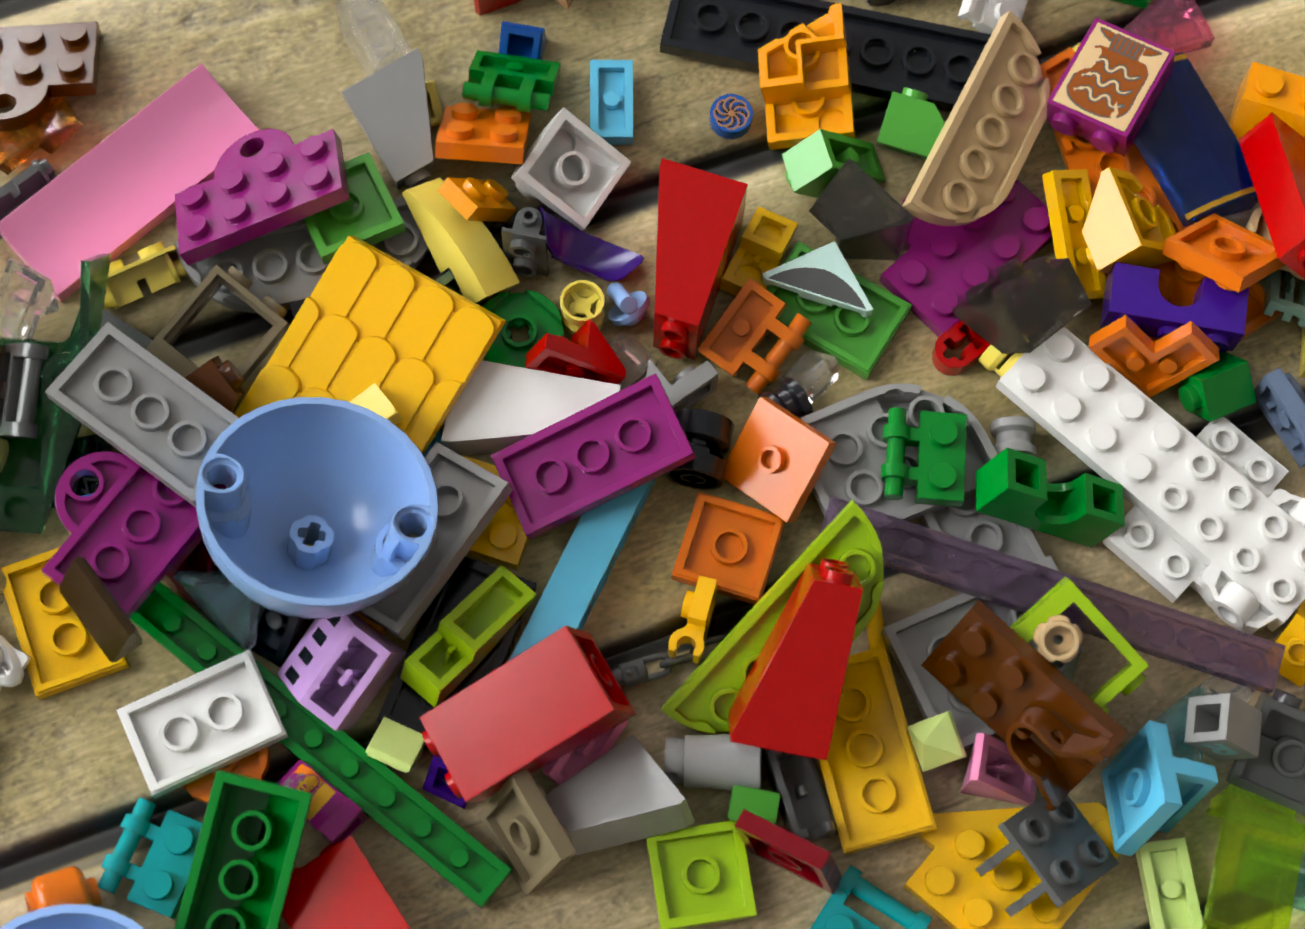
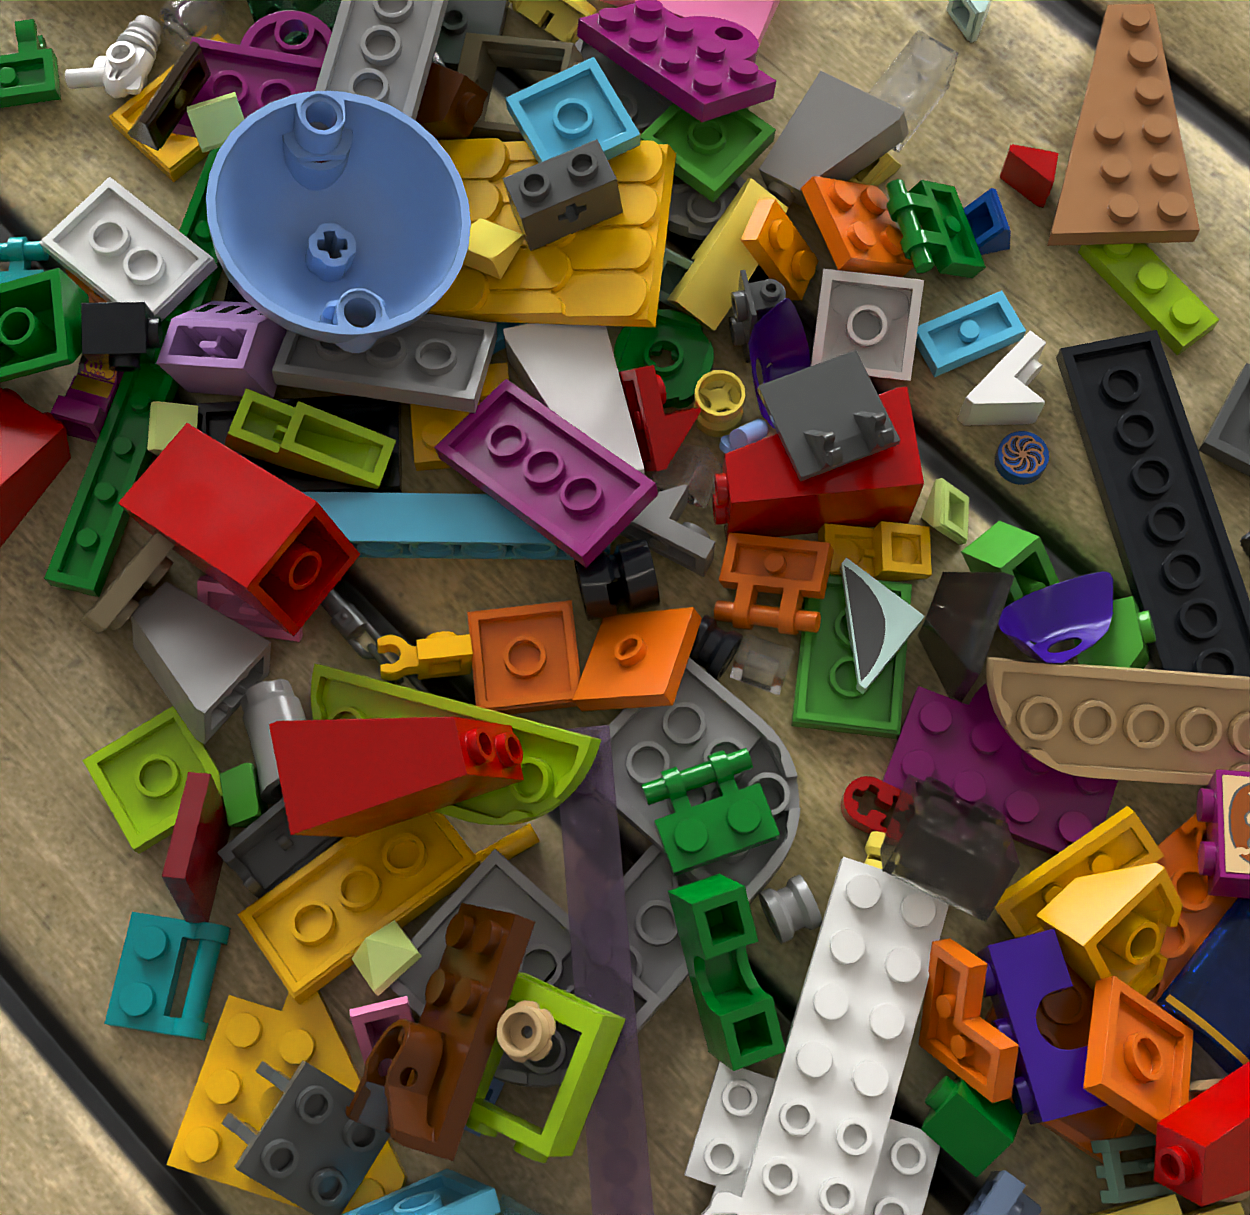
camera: 70 degrees right, 0 degrees up
(144, 577) = (215, 120): none -> yellowish green slope
(294, 296) = (572, 112): none -> medium azure plate
(296, 749) = (120, 334): none -> black brick
(364, 332) = (563, 194): none -> dark grey brick
(667, 221) = (828, 415): none -> dark grey plate
(673, 101) = (1004, 393): none -> white slope
(758, 188) = (948, 511): none -> yellowish green slope
(807, 81) = (1102, 509): light orange slope -> none
(880, 142) = (1060, 612): none -> dark purple piece

